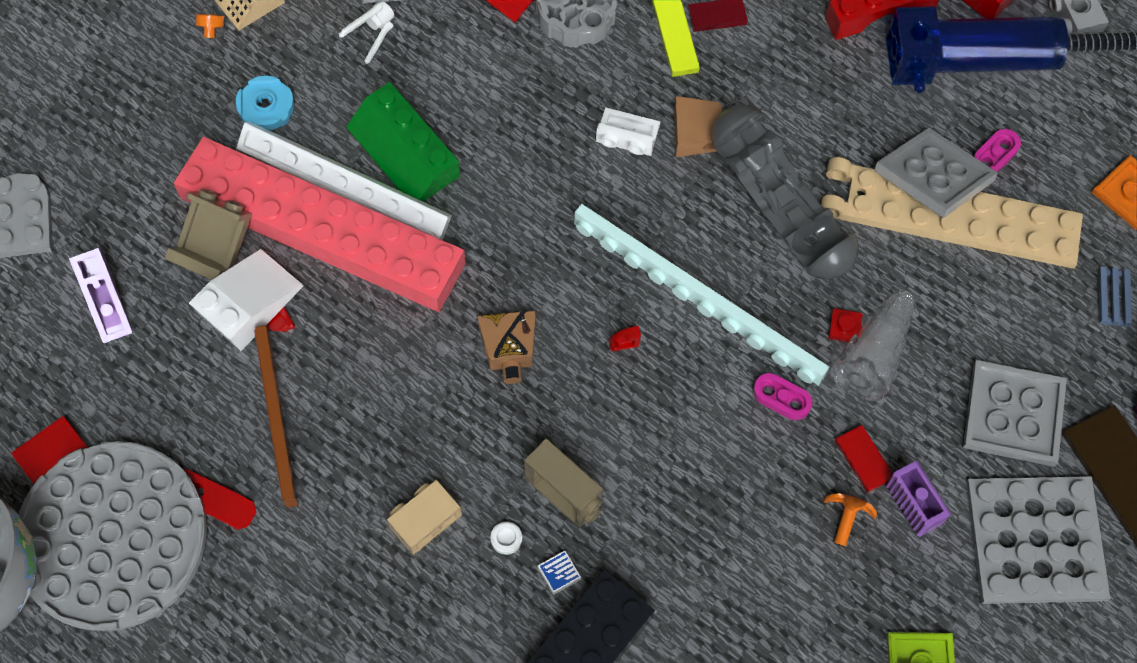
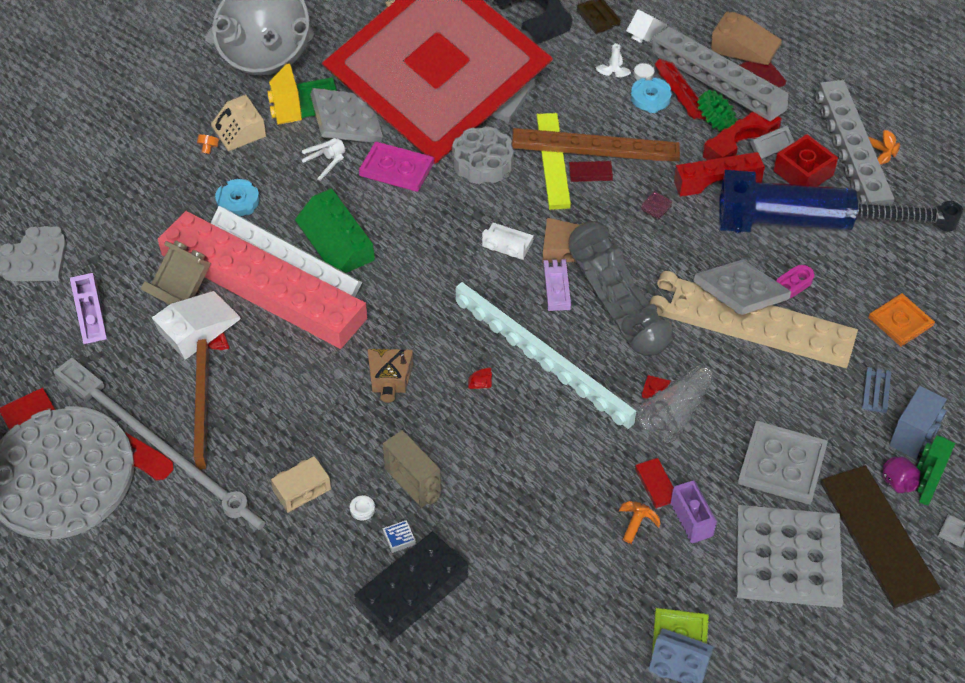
camera: 10 degrees right, 15 degrees down
(124, 407) = (88, 386): none -> light grey bar
(465, 33) = (396, 166): none -> dark pink plate
(700, 190) = (557, 286): none -> lavender hinge
(784, 394) = (598, 431): dark pink plate -> none
(809, 58) = (656, 205): none -> clear pink plate

